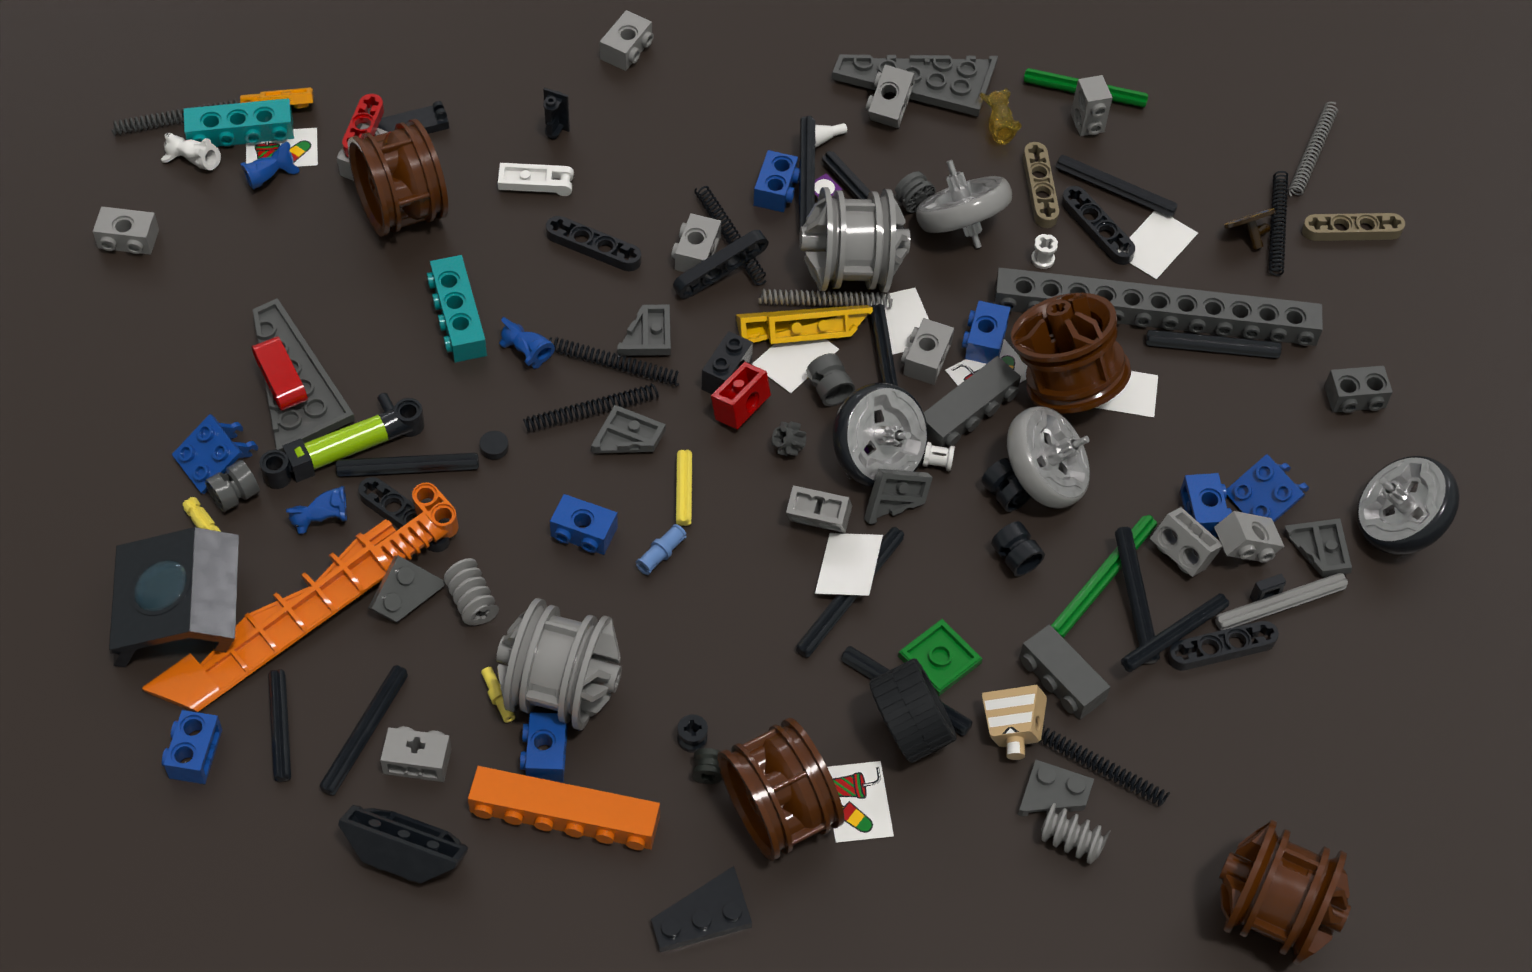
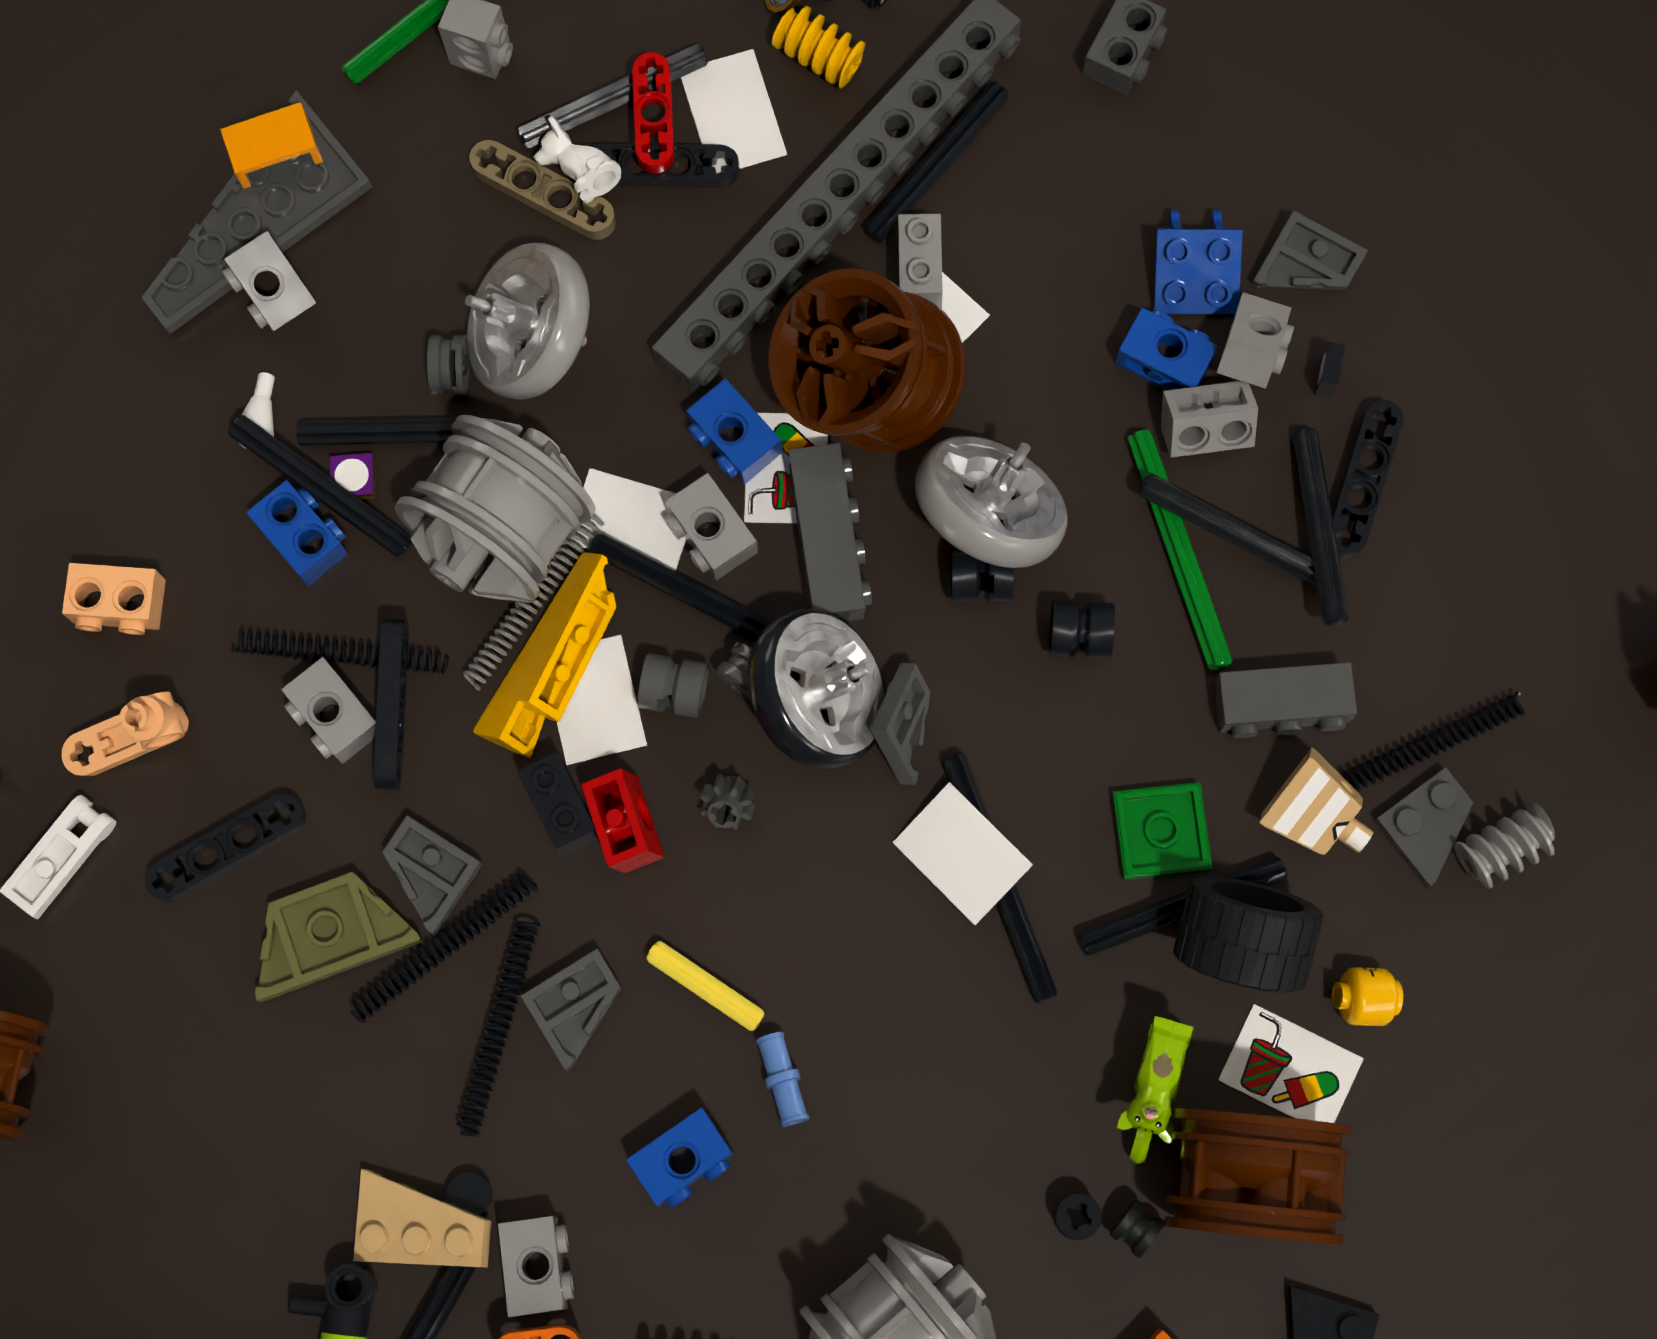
camera: 50 degrees left, 20 degrees up
(458, 309) = (148, 1077): teal brick -> none
(459, 427) = (413, 1228): none -> tan wing
(484, 477) = (517, 1244): none -> light grey brick
(533, 345) = (345, 1046): blue animal -> none
(582, 307) = (326, 934): none -> olive wing
(626, 170) = (138, 729): none -> light nougat piece
(682, 127) = (116, 589): none -> light nougat brick
(813, 713) = (1156, 1085): none -> lime animal
(819, 509) = (865, 839): light grey brick -> none
(929, 809) = (1367, 996): none -> yellow head
(938, 456) = (880, 626): white bush -> none
(962, 52) = (269, 140): none -> light orange panel
(1001, 123) = (409, 166): clear yellow animal -> none
(1045, 247) = (646, 258): white bush -> none
(1067, 188) = (587, 165): none -> white animal
(1118, 211) = (644, 97): none -> red beam
(1153, 361) = (921, 256): none -> light grey brick
(1224, 253) = (818, 46): none -> yellow piece
(1281, 601) = (1355, 345): light grey axle -> none
(1418, 516) = (1364, 86): flat silver wheel -> none

